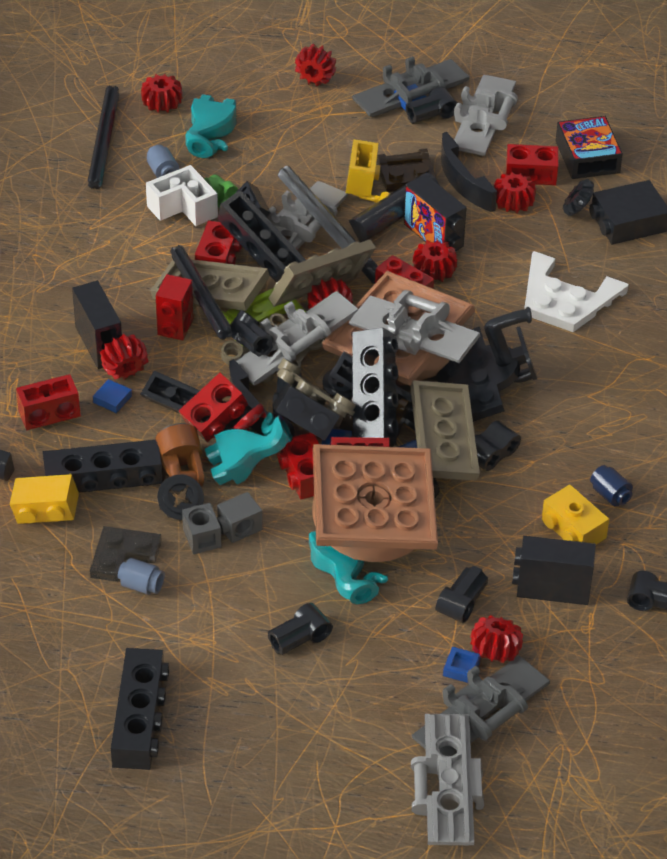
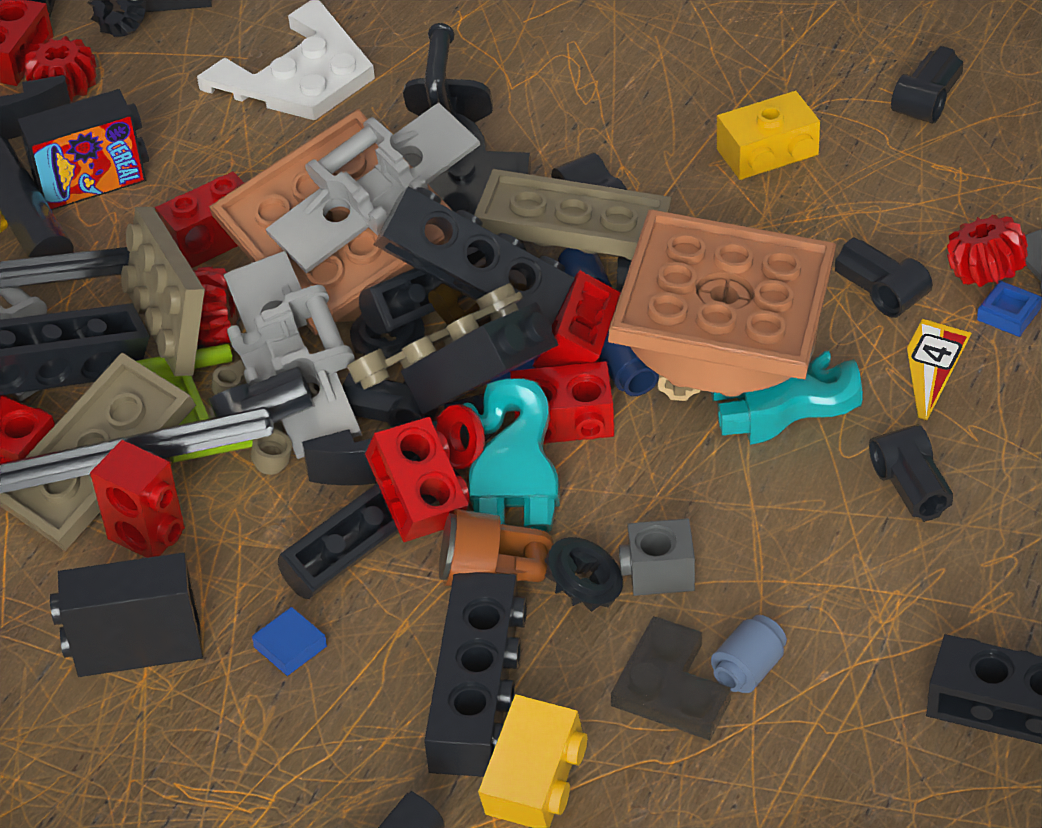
camera: 70 degrees left, 0 degrees up
(48, 402) = (291, 722): red brick -> none
(124, 356) = (223, 593): red gear -> none
(239, 517) = (649, 494): dark grey brick -> none
(409, 634) = (931, 361): none -> sticker
(435, 259) = (164, 175): red gear -> none
(554, 570) = (880, 159): black brick -> none
(611, 485) = (714, 88): dark blue brick -> none

